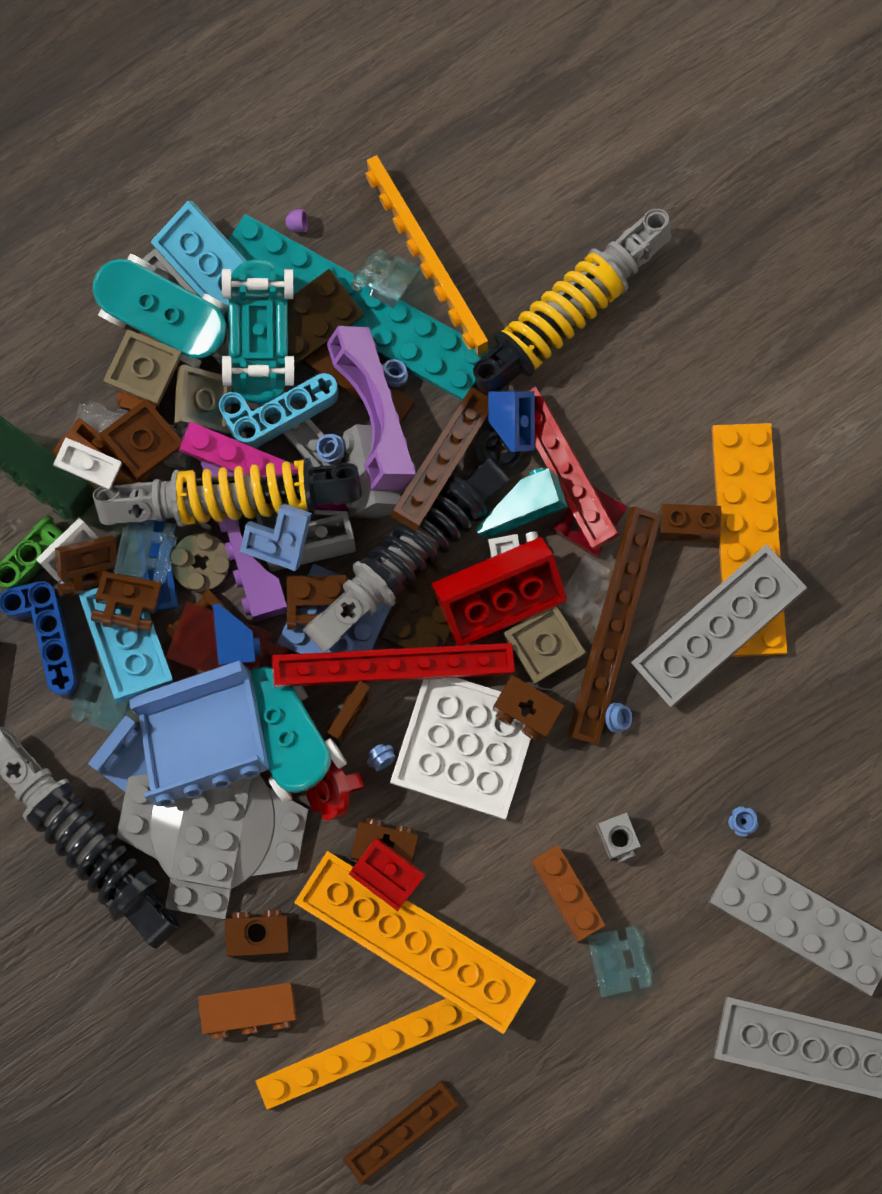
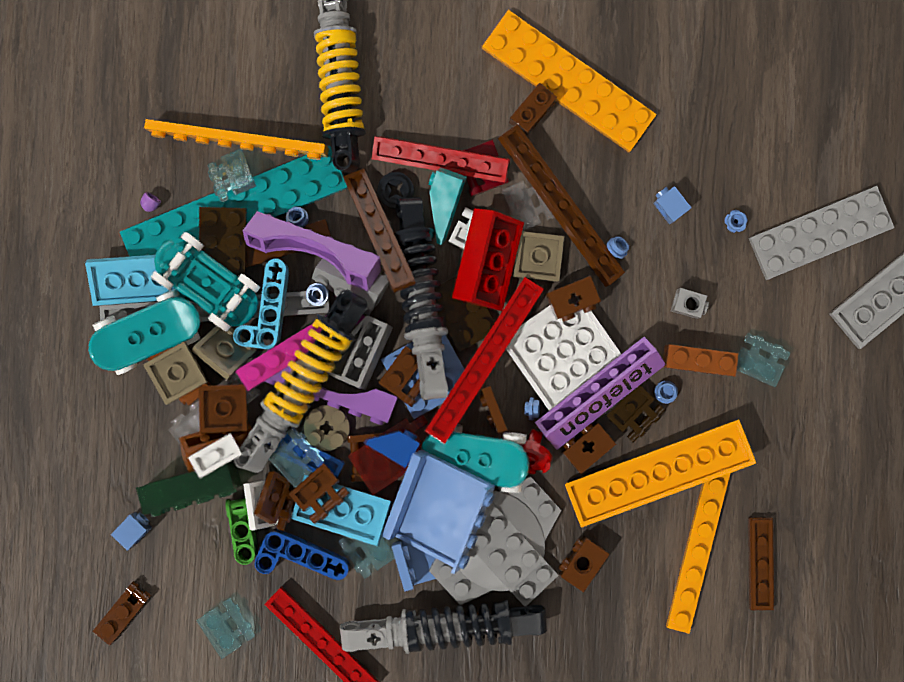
camera: 45 degrees left, 10 degrees up
(247, 1010) = (623, 602): dark orange brick -> none
(282, 545) = (359, 373): medium blue plate -> none
(386, 874) = (609, 460): red plate -> none
(450, 812) = (600, 393): none -> medium lavender brick
(462, 860) = (630, 408): none -> dark brown plate
(506, 885) = (665, 392): none -> medium blue plate
(513, 418) = (384, 166): blue slope -> none
(706, 738) = (671, 204): none -> medium blue brick
(719, 626) = (611, 142): light grey plate -> none

